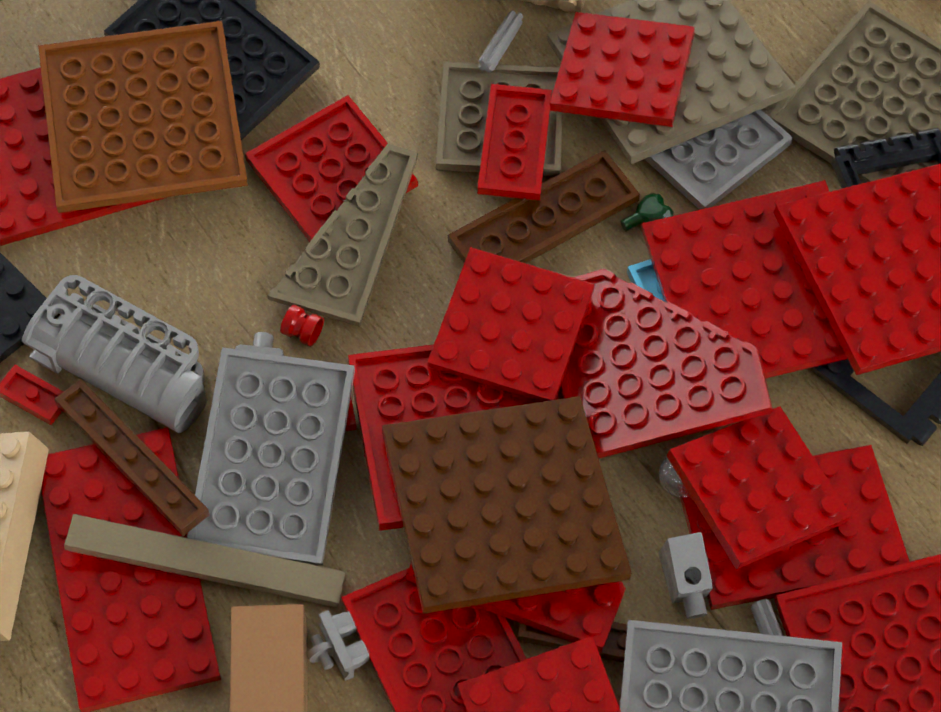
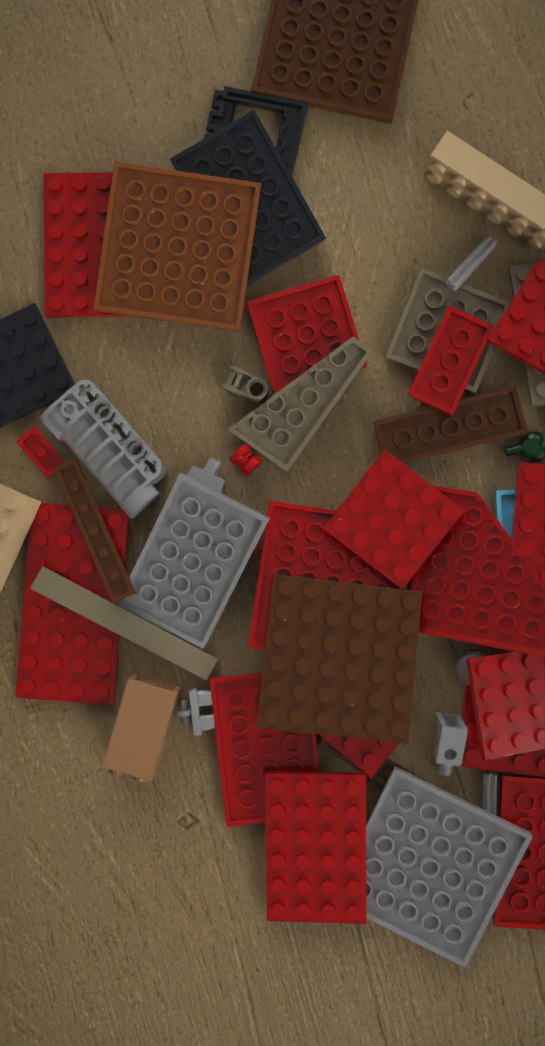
camera: 20 degrees right, 25 degrees up
(272, 243) = (240, 384): none -> dark tan piece

